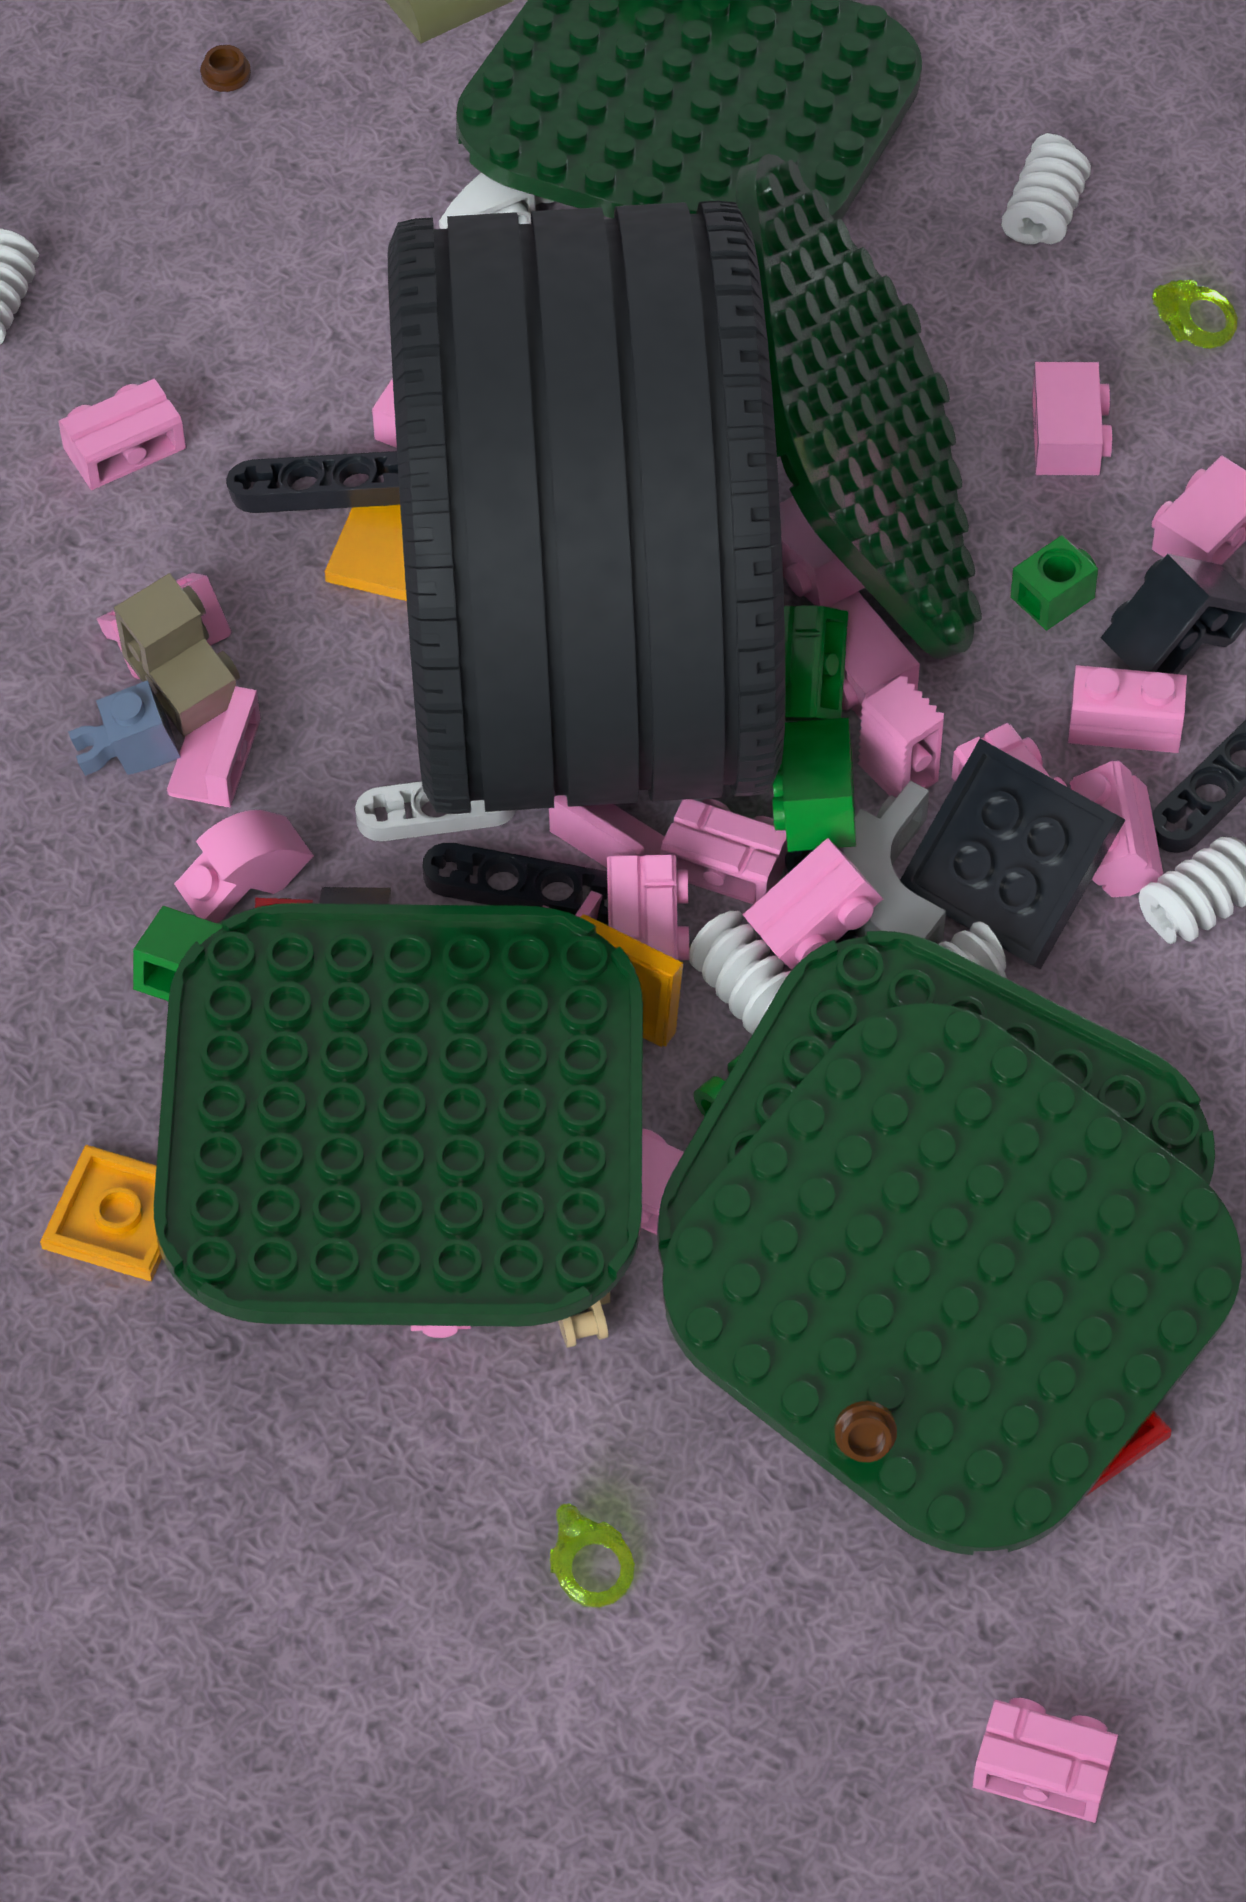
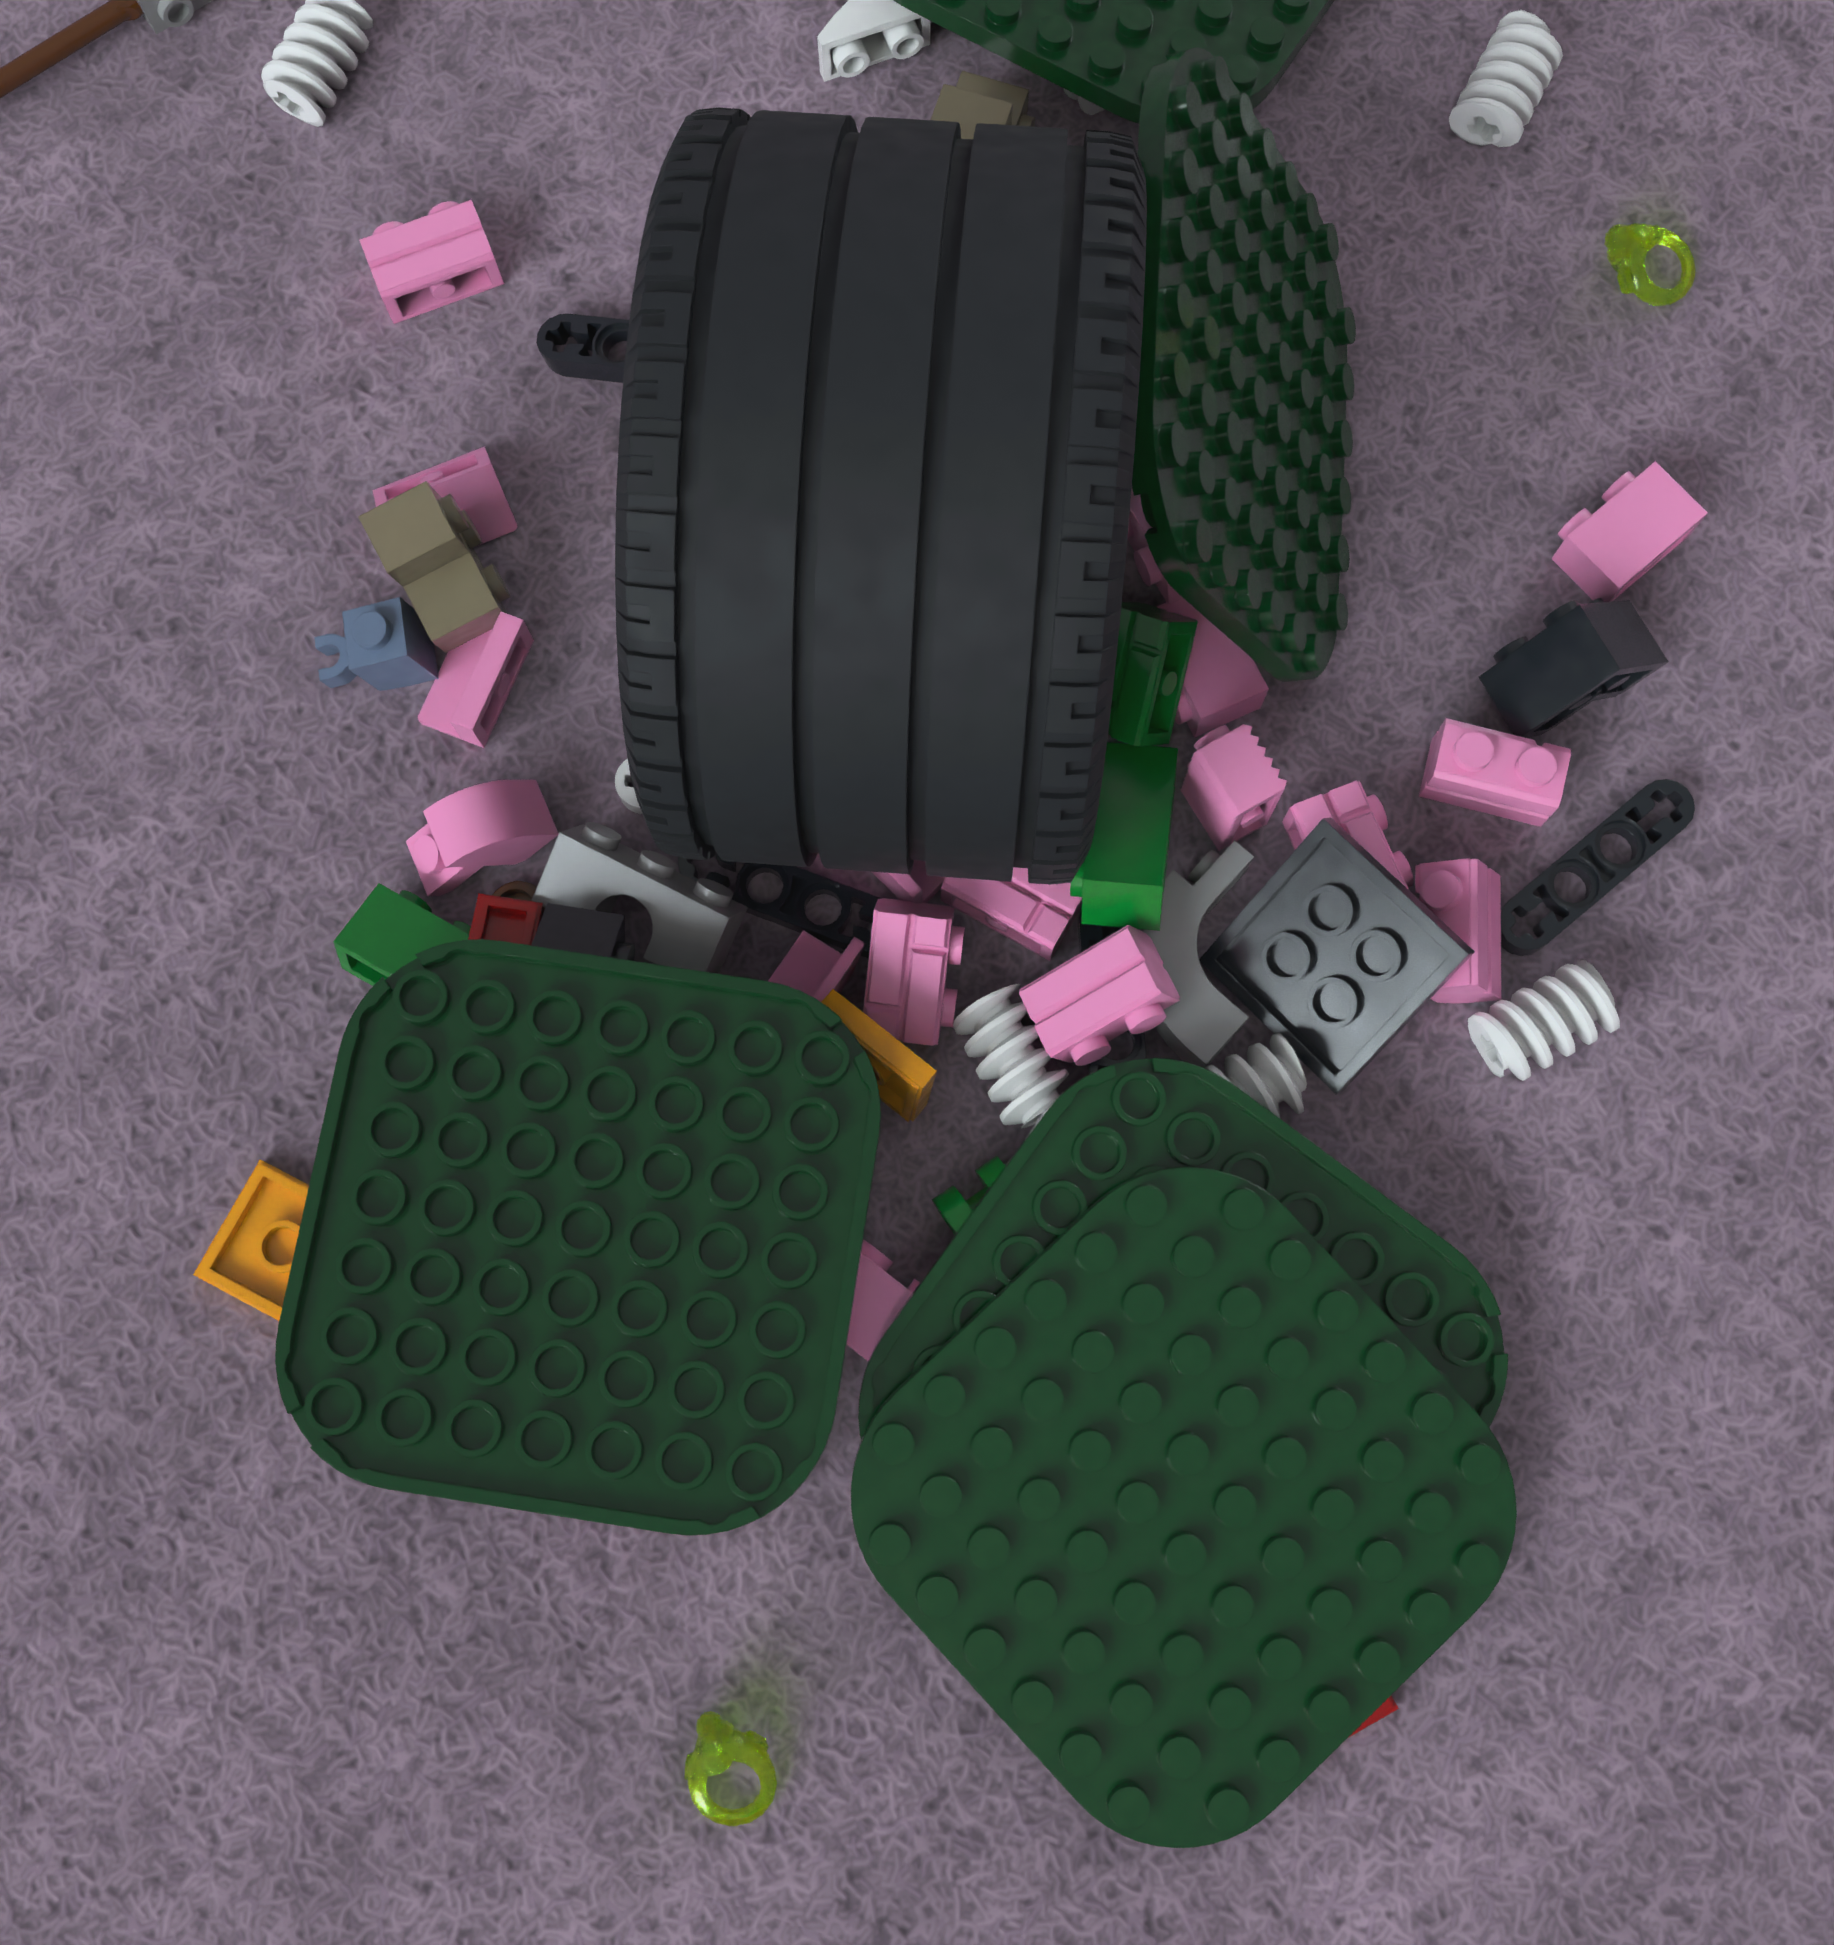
camera: 10 degrees right, 20 degrees up
(353, 865) = (689, 918): none -> light grey arch
(865, 1431) = (1051, 1720): reddish brown plate -> none
(1054, 582) = (1420, 611): green brick -> none
(1069, 418) = (1486, 382): bright pink brick -> none

